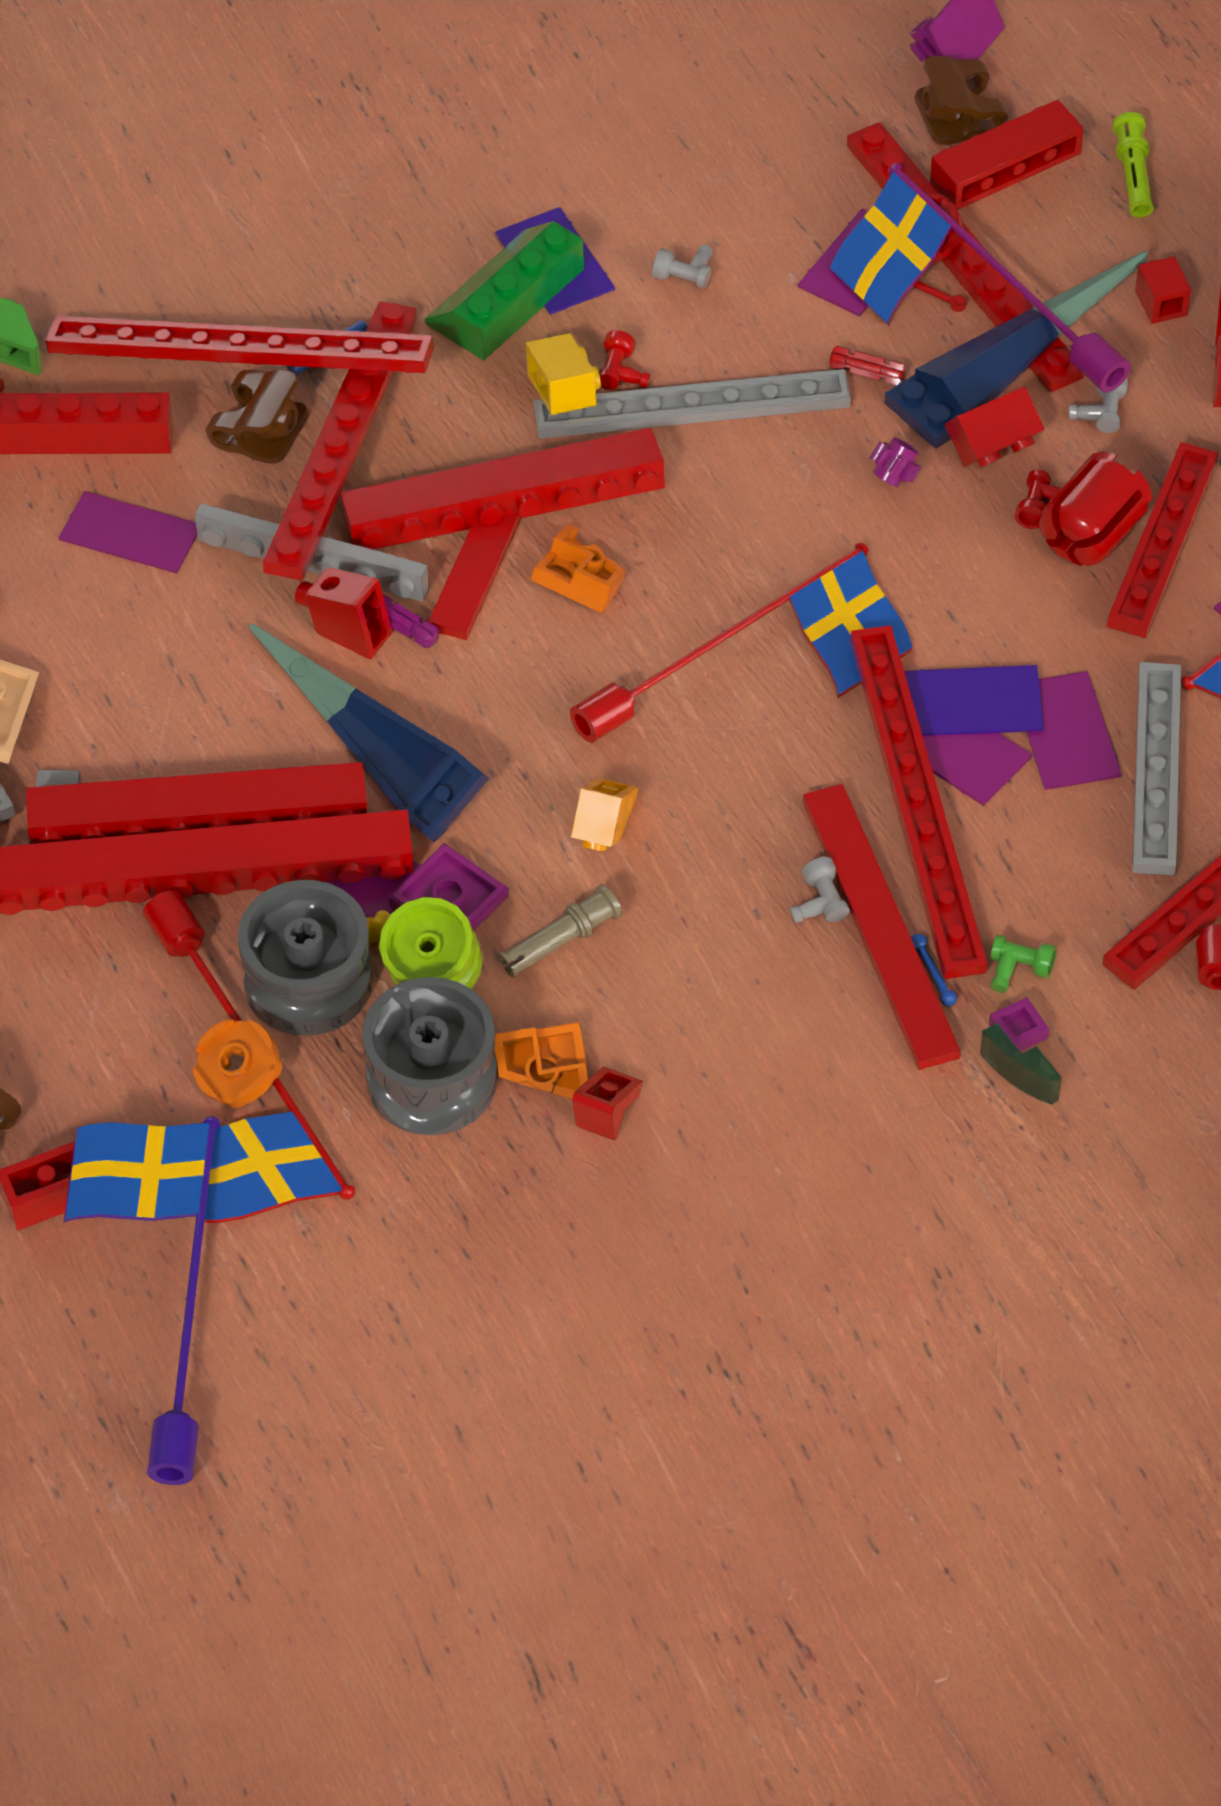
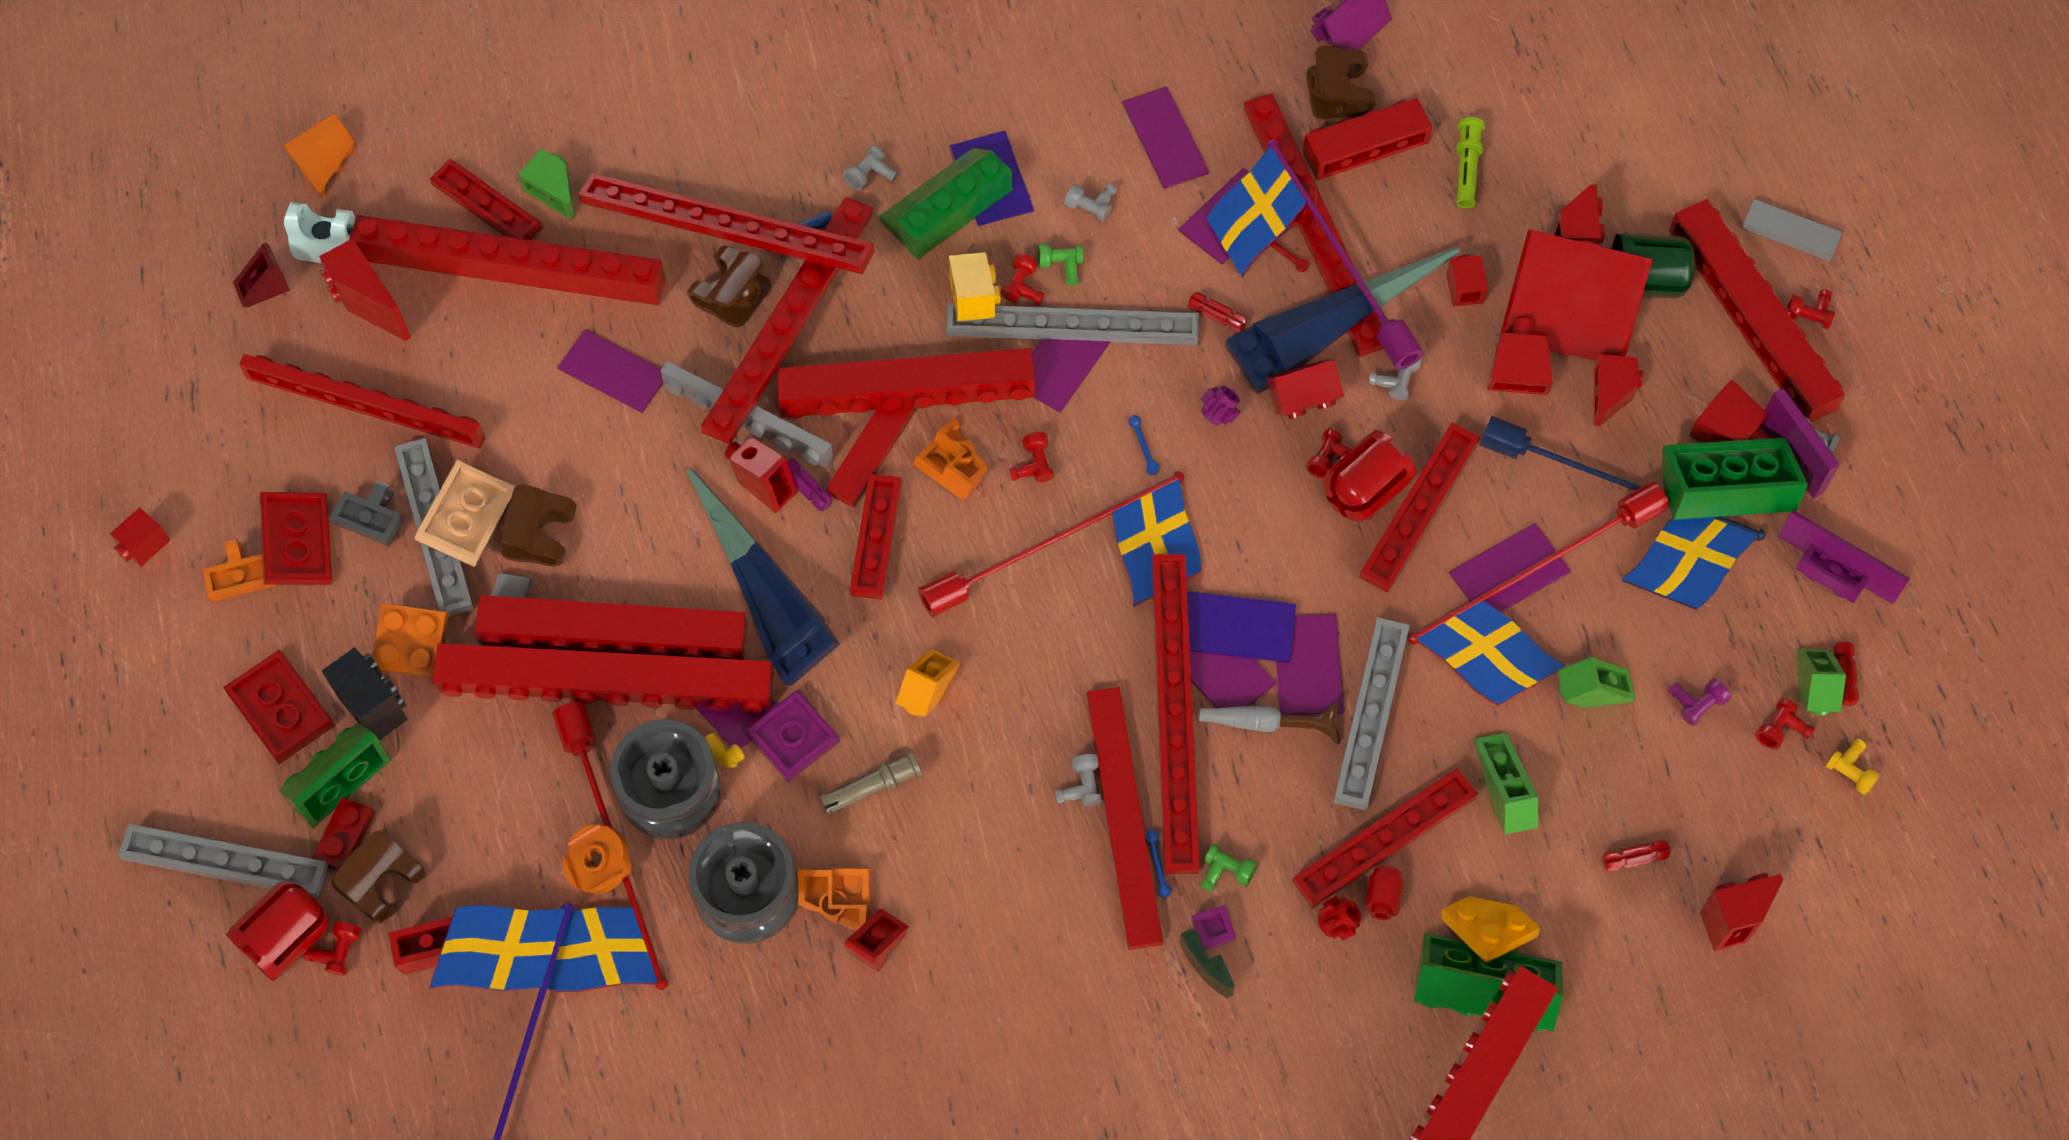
camera: 10 degrees right, 10 degrees up
(60, 707) = (526, 515): none -> reddish brown piece
(387, 277) = (856, 176): none -> light grey piece
(430, 941) = (746, 781): lime wheel -> none
(503, 664) = (875, 536): none -> red plate
(674, 330) = (1070, 257): none -> bright green piece
(678, 536) = (1035, 444): none -> red piece
(693, 453) = (1062, 367): none -> magenta window
(758, 189) = (1165, 137): none -> magenta piece
(826, 544) = (1152, 467): none -> blue hinge
(1035, 792) = (1270, 719): none -> light grey piece
(1170, 990) = (1339, 918): none -> red gear

